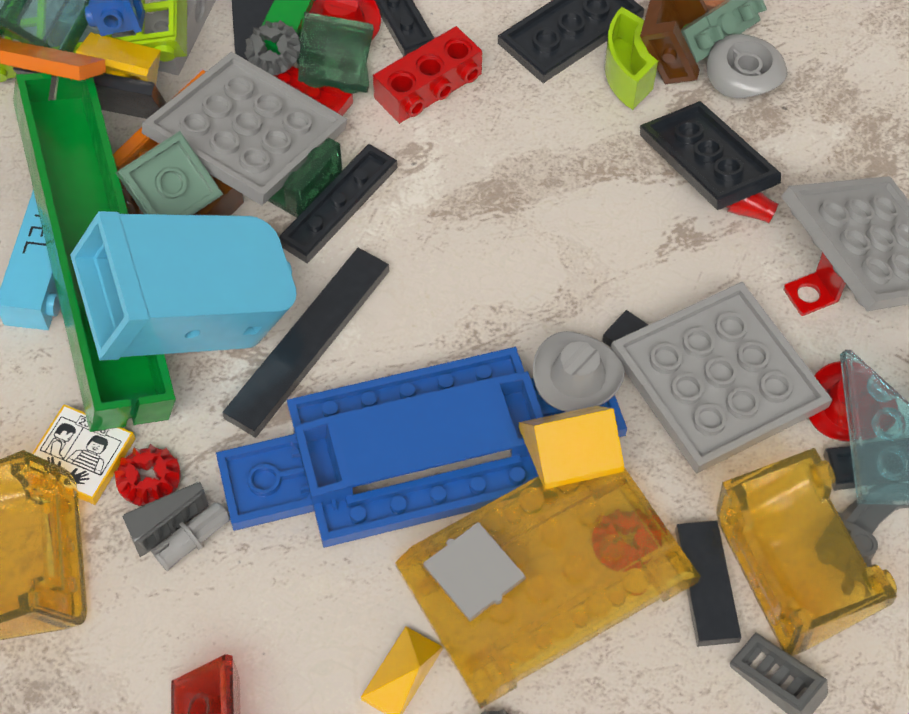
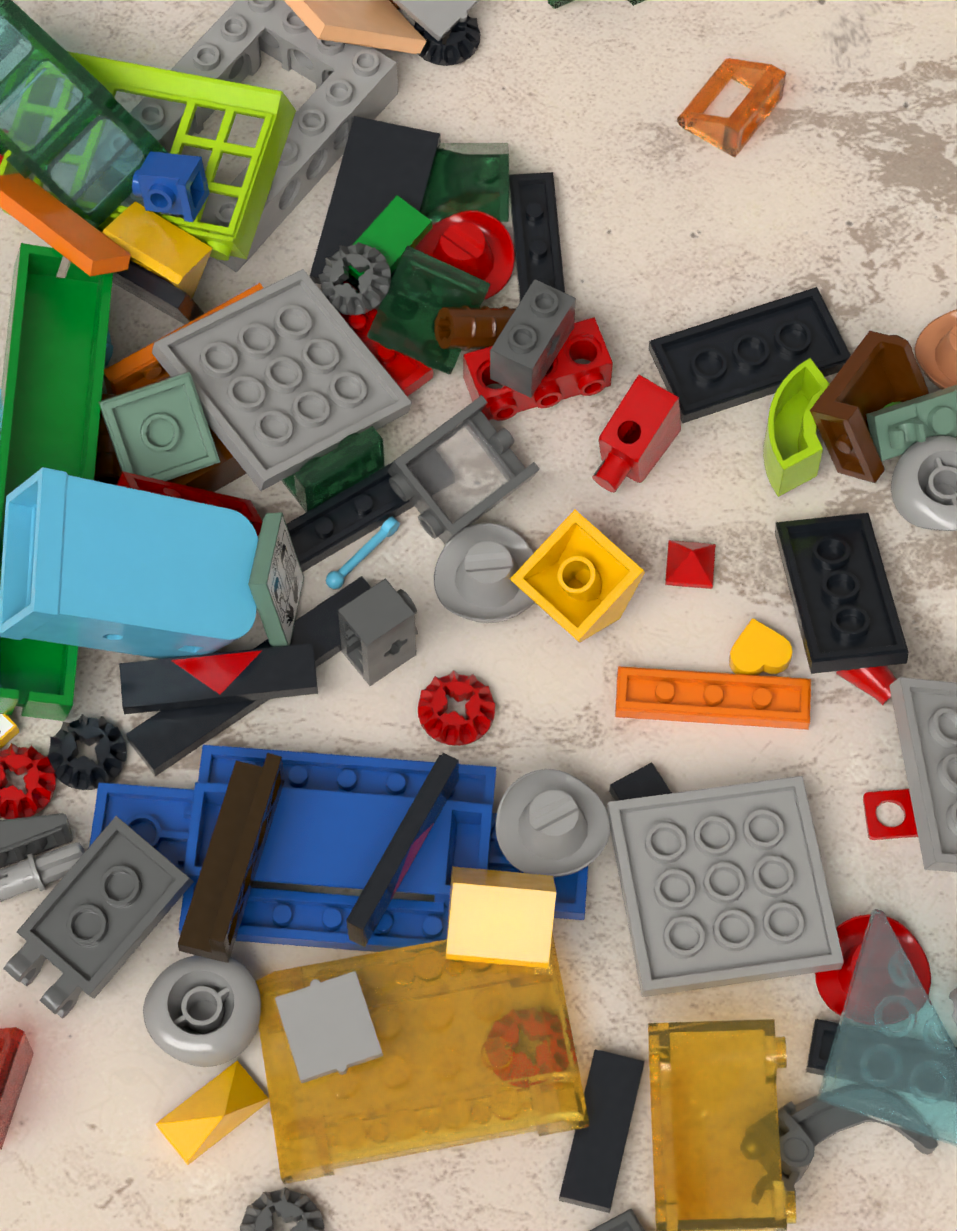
camera: 20 degrees right, 5 degrees up
(197, 451) = (82, 772): none -> black gear
(254, 550) = (97, 915): none -> dark grey tile
(279, 349) = (218, 678): none -> black tile
(299, 263) = (276, 580): none -> tile
(338, 256) = (336, 578): none -> medium azure hinge
(348, 471) = (232, 859): none -> dark brown fence
(366, 594) = (203, 1010): none -> light grey hat
(375, 55) = (470, 327): none -> reddish brown axle
(389, 277) = (378, 631): none -> dark grey brick
(401, 155) = (459, 472): none -> window
(421, 46) = (532, 338): none -> dark grey brick
(449, 219) = (477, 571): none -> light grey hat
(467, 331) = (452, 727): none -> red gear
(478, 421) = (402, 849): none -> black tile
(520, 91) = (637, 434): none -> red torso
(521, 196) = (579, 578): none -> yellow slope
(591, 171) = (690, 564): none -> red slope
(648, 254) = (713, 698): none -> orange tile
(667, 212) = (760, 651): none -> yellow tile

